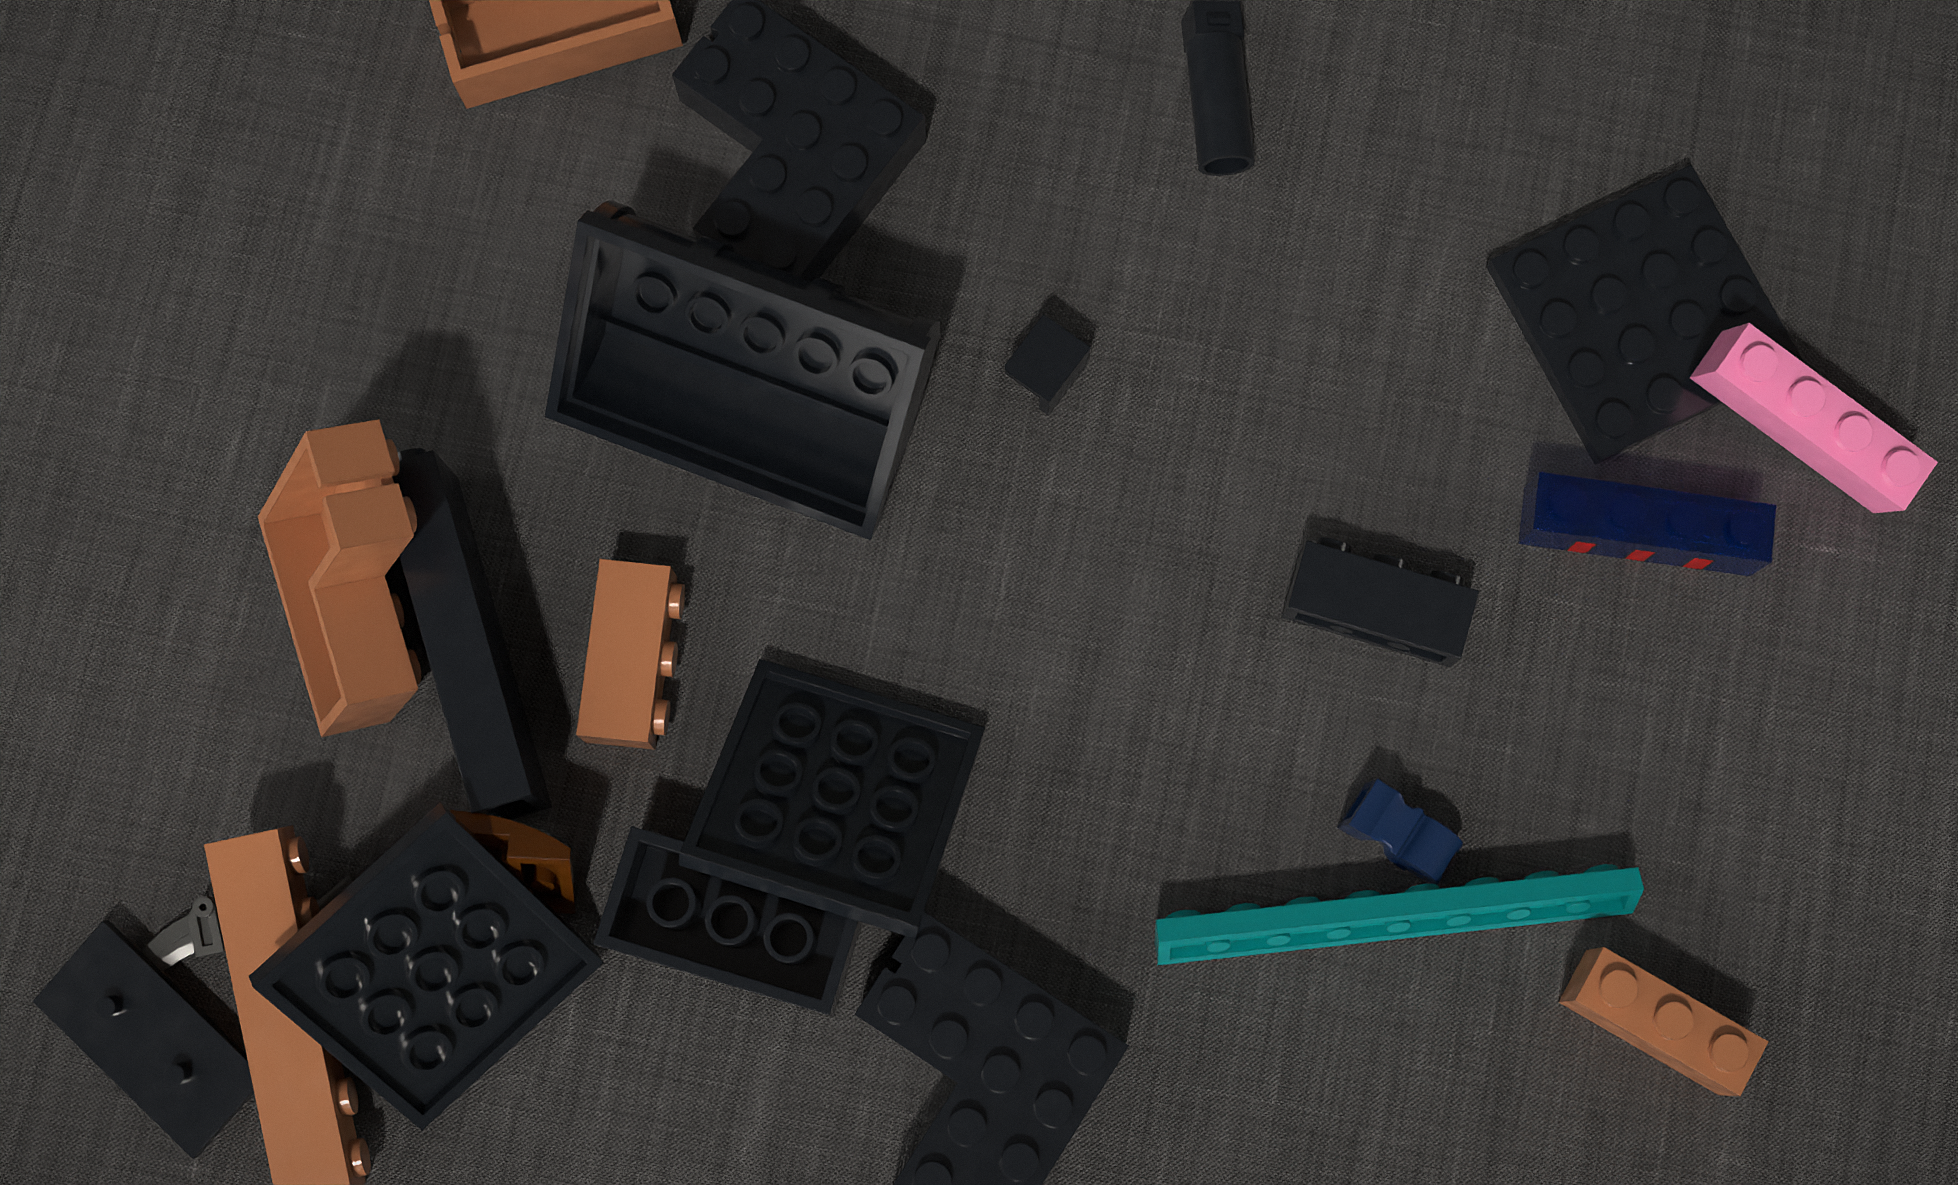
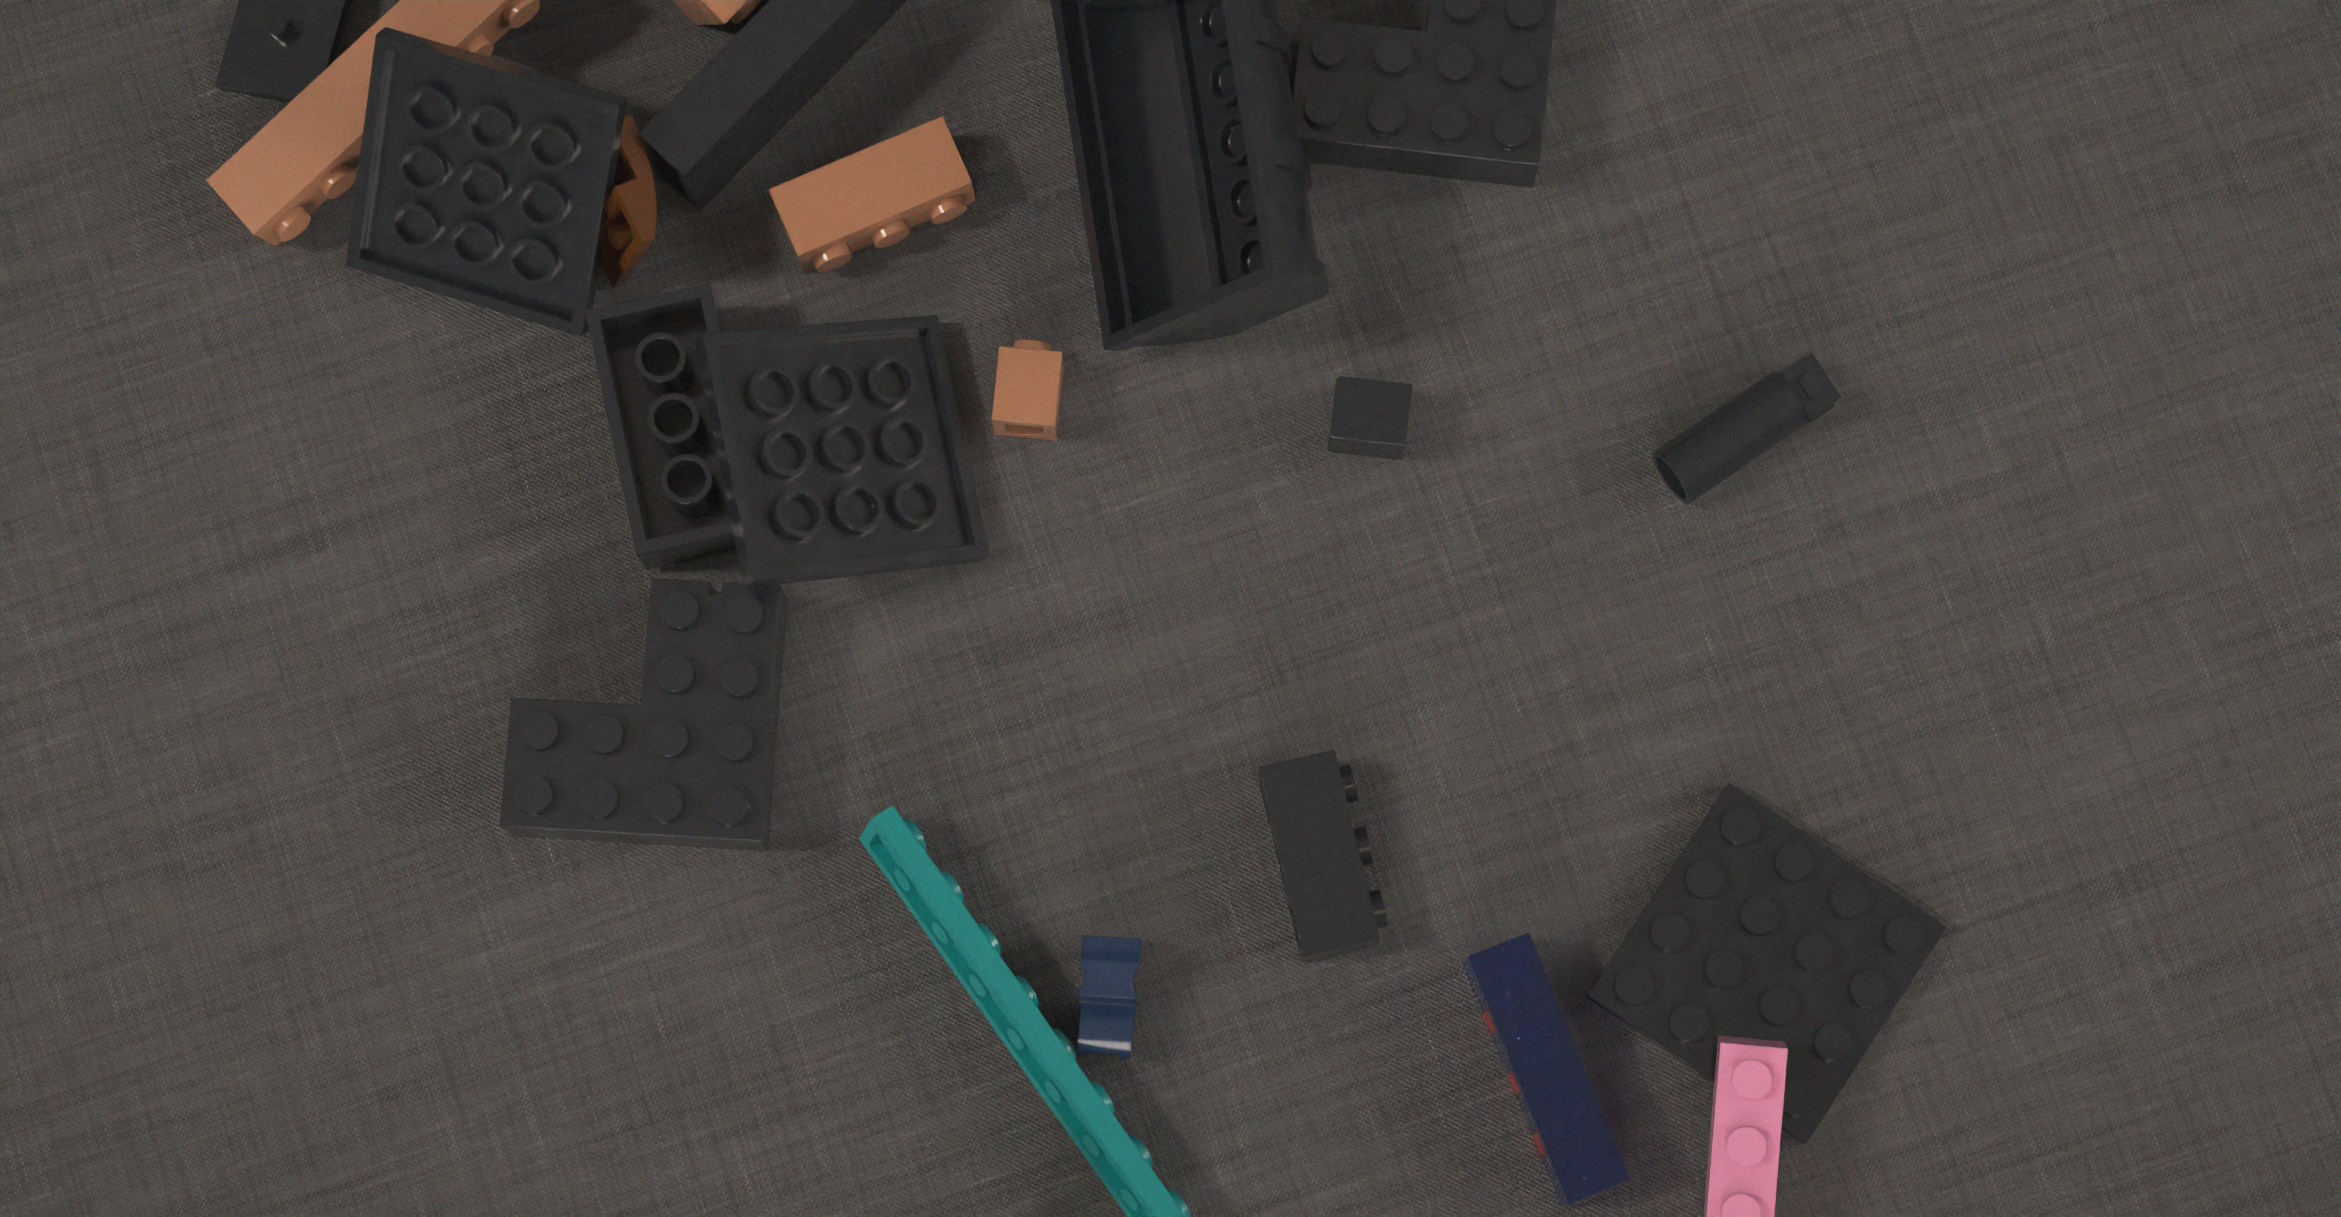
camera: 60 degrees right, 0 degrees up
(866, 620) = (1028, 390): none -> nougat brick

